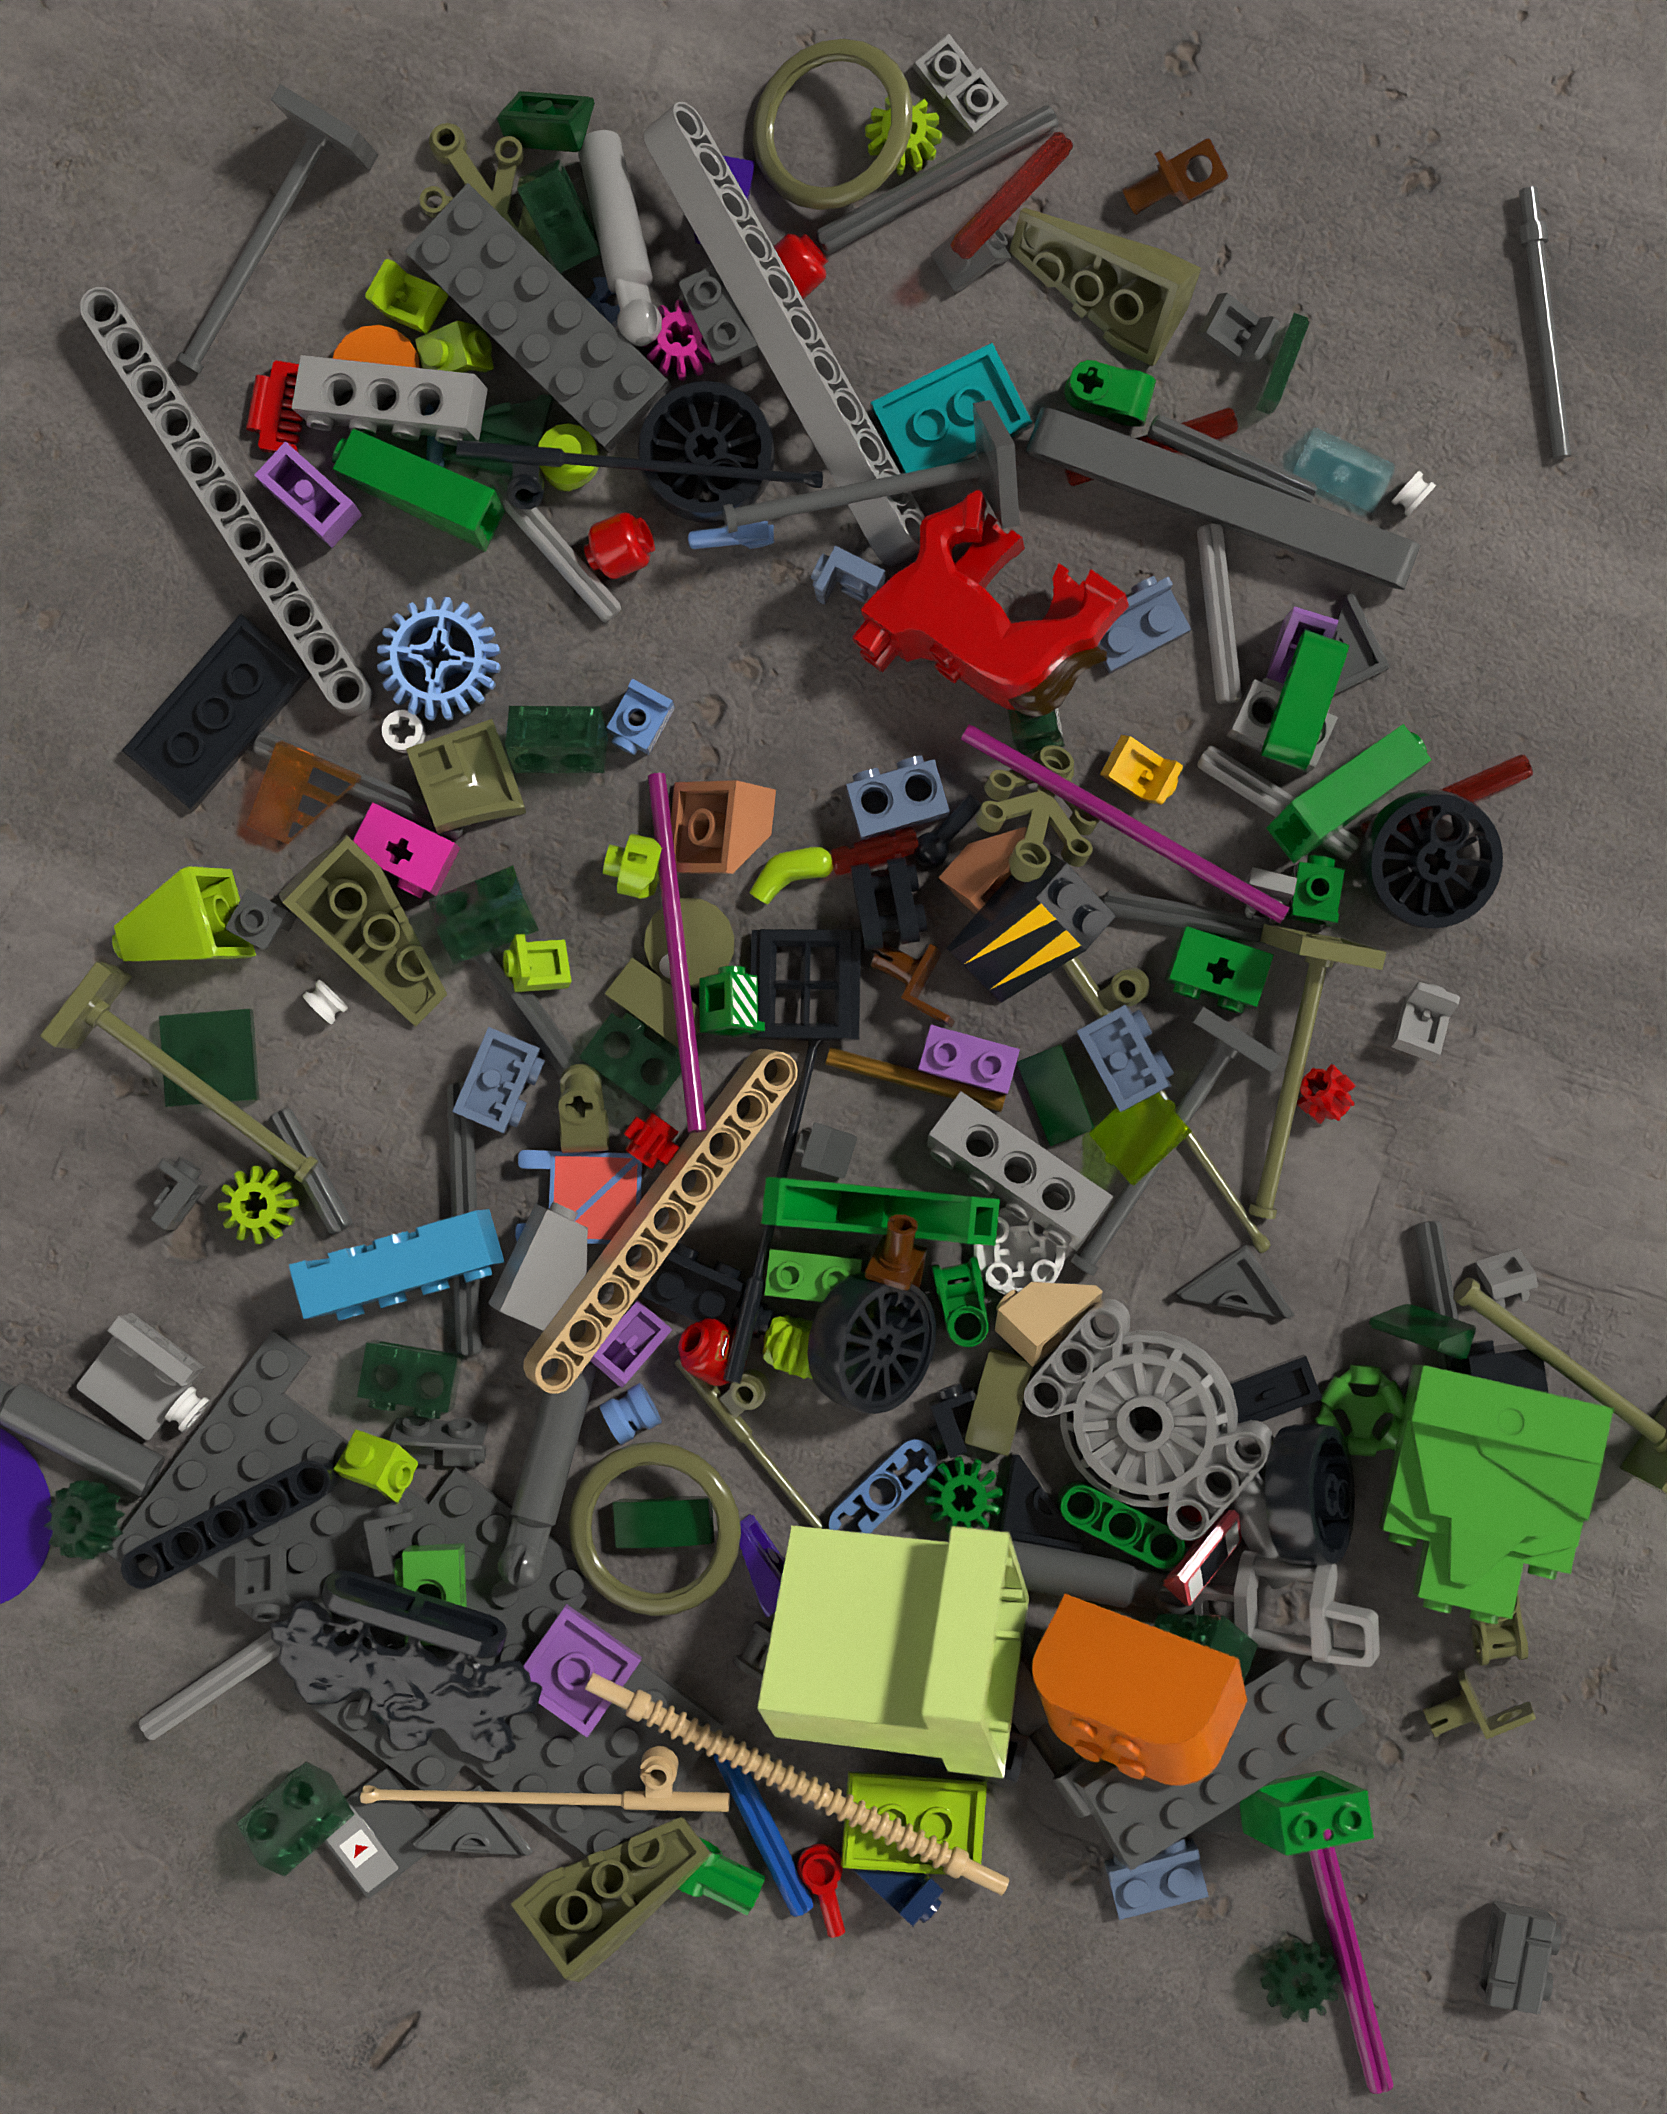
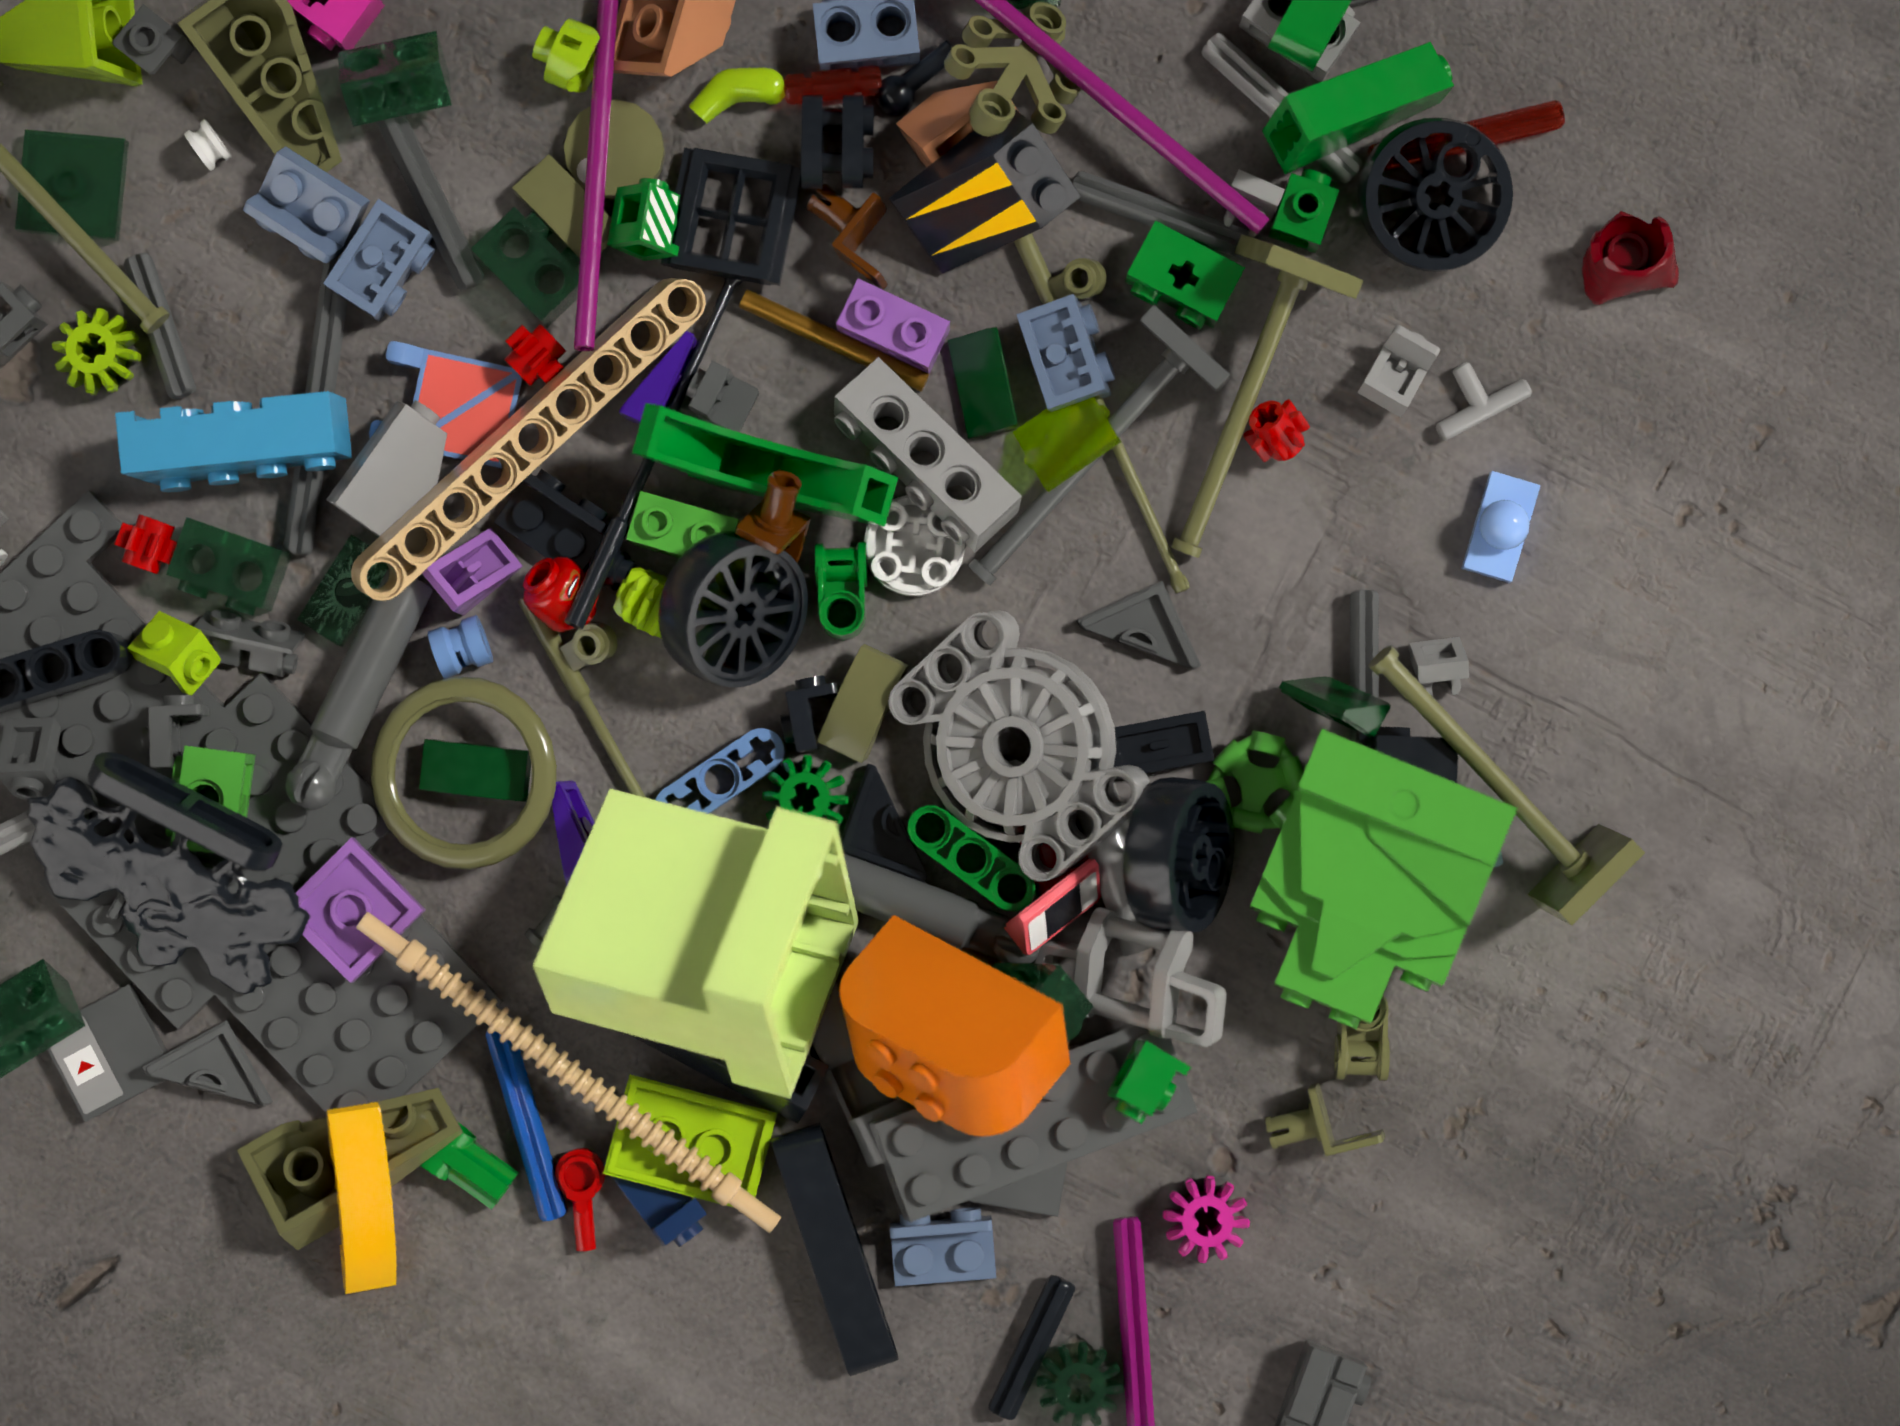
camera: 15 degrees right, 0 degrees up
(334, 1370) = (146, 543): none -> red gear
(424, 1042) = (307, 206): none -> sand blue bracket
(511, 1391) = (336, 601): none -> clear green tile
(537, 964) = (444, 143): lime bracket -> none
(582, 1111) = (465, 314): olive piece -> none
(632, 1927) = (363, 1197): none -> yellow slope
(658, 1773) = (415, 1061): tan piece -> none
(768, 1151) = (662, 380): none -> dark purple slope
(1043, 1316) = (923, 614): tan slope -> none
(1060, 1896) = (834, 1249): none -> black beam
(1141, 771) = (1137, 46): yellow bracket -> none
(1250, 1952) = (1031, 1347): none -> black axle
(1299, 1808) = (1108, 1194): green window -> none
(1318, 1707) = (1145, 1081): none -> green brick
(1405, 1814) = (1222, 1213): none -> dark pink gear
(1502, 1038) = (1481, 405): none -> light grey piece
(1539, 1143) = (1501, 526): none -> light blue tile
(1611, 884) = (1629, 258): none -> dark red hair

